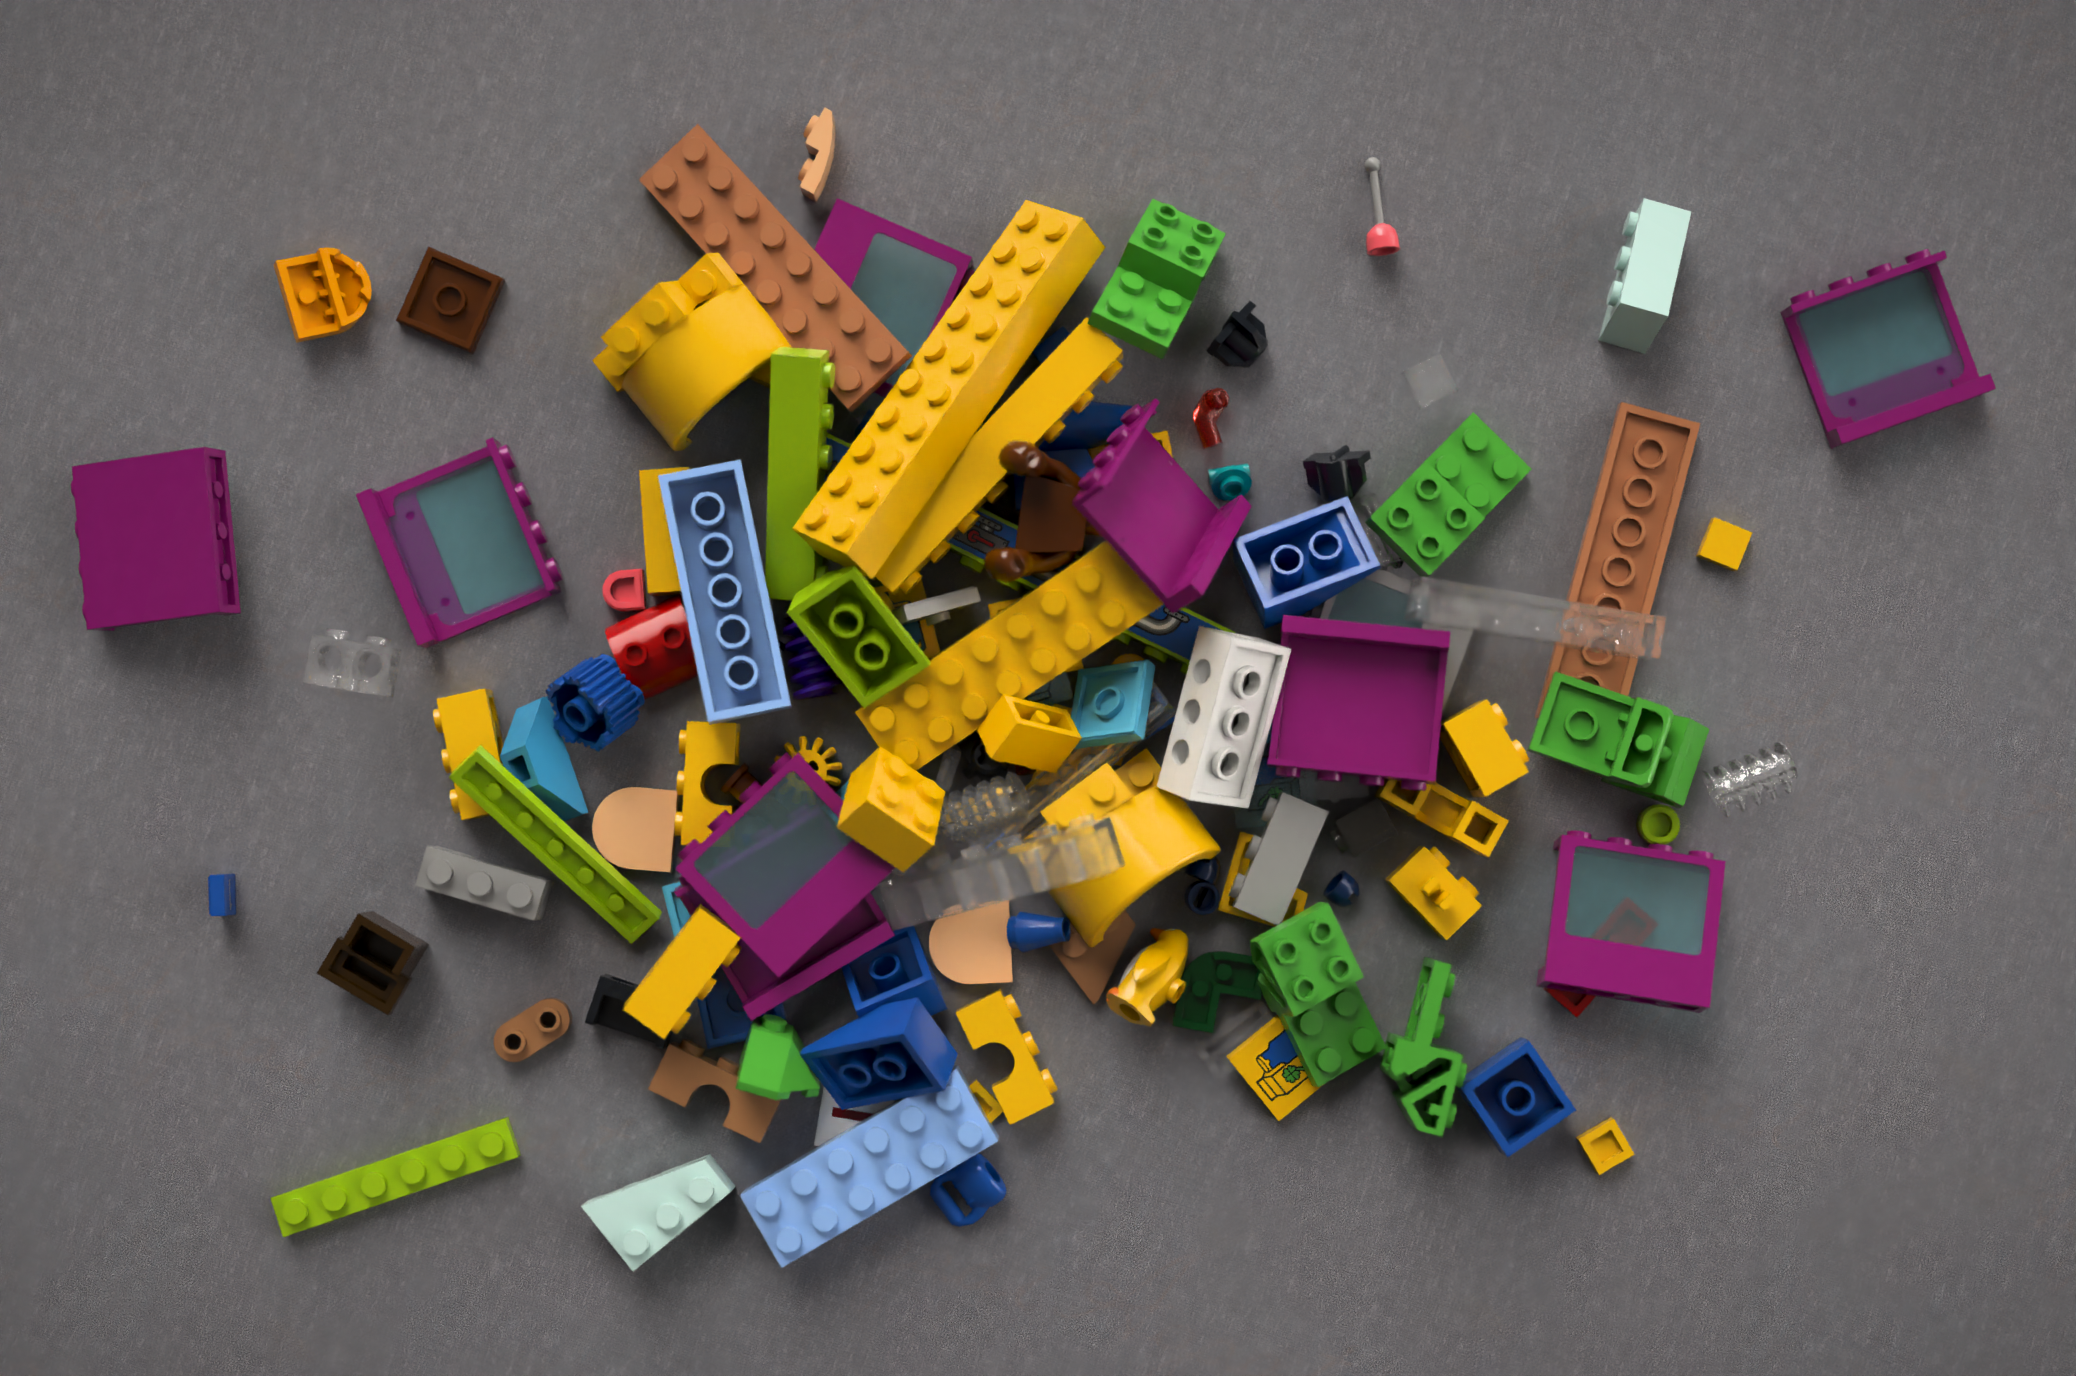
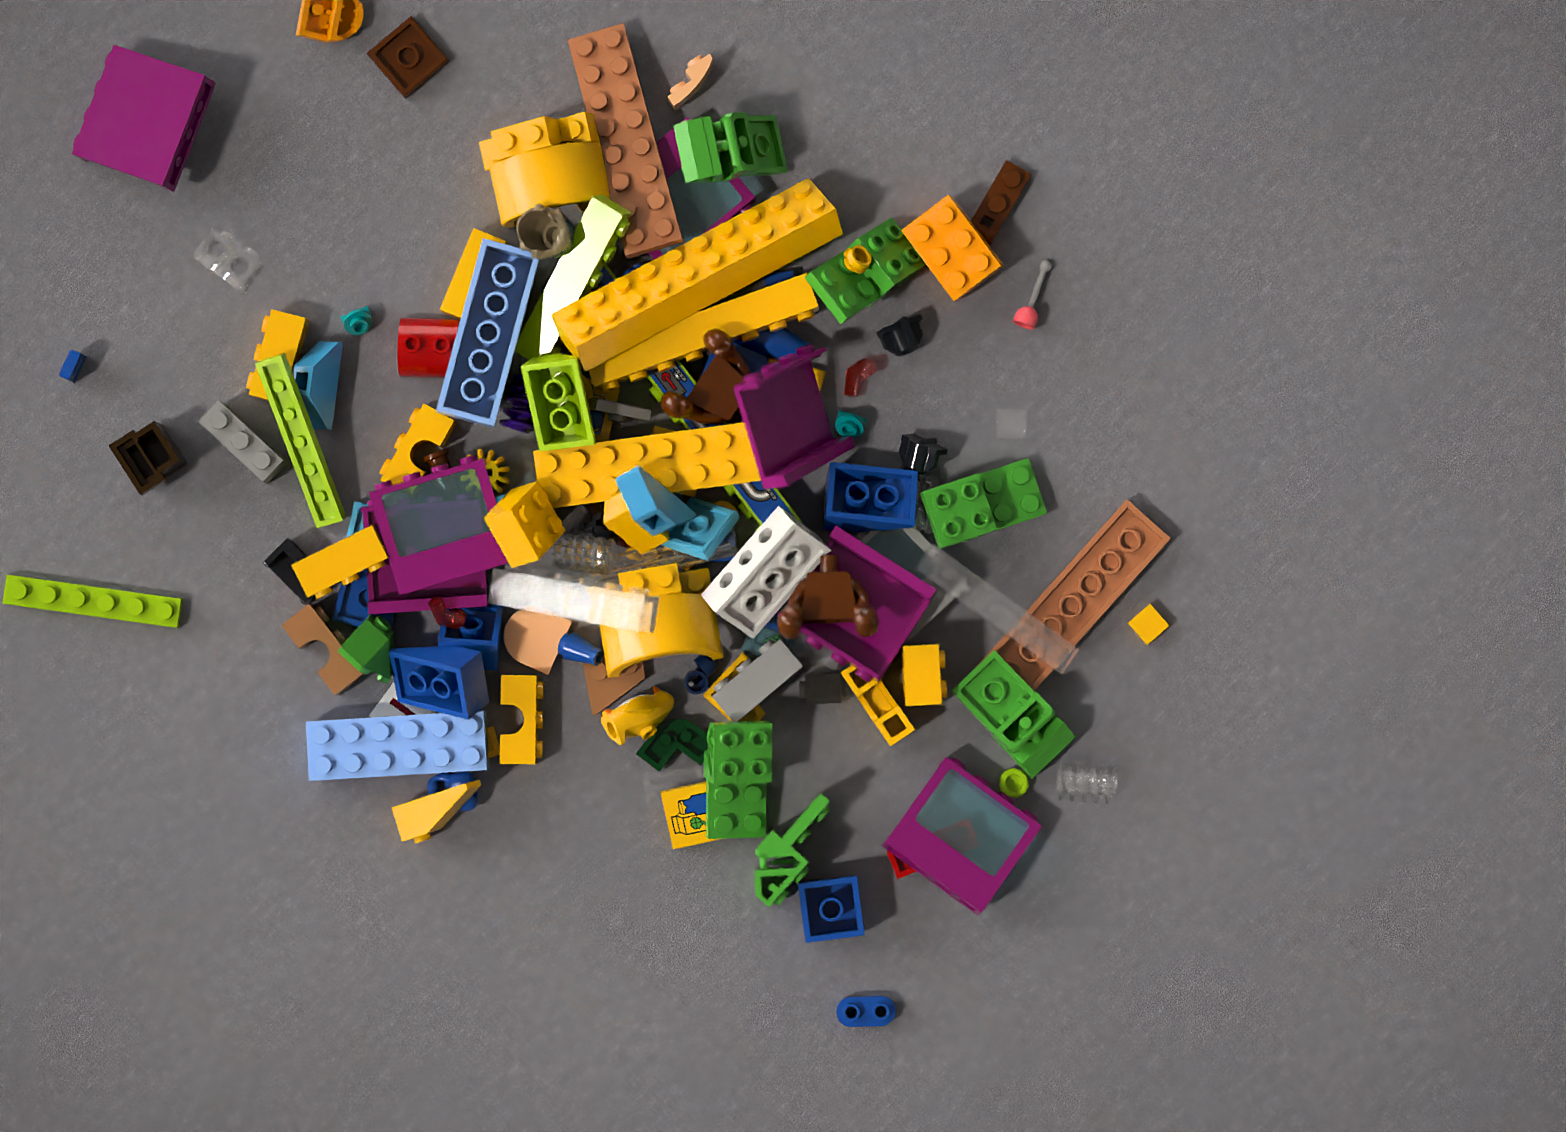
camera: 30 degrees right, 0 degrees up
(461, 544) = (336, 217): clear light blue panel -> none
(531, 1029) = (225, 551): medium nougat plate -> none
(552, 659) = (358, 321): none -> teal plate
(594, 703) = (370, 362): blue brick -> none
(625, 590) = (426, 300): coral tile -> none
(637, 828) = (357, 456): light nougat tile -> none
(657, 1209) = (247, 705): light aqua wedge -> none
(733, 428) = (545, 232): none -> dark tan hair
(849, 976) = (444, 617): none -> clear red arm
(909, 210) = (730, 147): none -> bright green piece
(950, 1233) = (431, 813): none -> yellow slope
(1038, 702) = (652, 503): none -> dark azure slope
(1141, 268) = (857, 259): none -> yellow plate
(1249, 197) = (952, 248): none -> light orange brick
(1274, 113) = (1000, 199): none -> reddish brown plate
(1322, 710) = (828, 598): none -> reddish brown torso
(1341, 888) = (787, 721): dark blue hinge -> none
(1434, 891) = (846, 752): yellow brick -> none
(1605, 1145) = (874, 971): yellow tile -> none
(1619, 1199) = (865, 1011): none -> blue plate
(1645, 275) = (1184, 424): light aqua wedge -> none
(1882, 349) = (1315, 550): clear light blue panel -> none

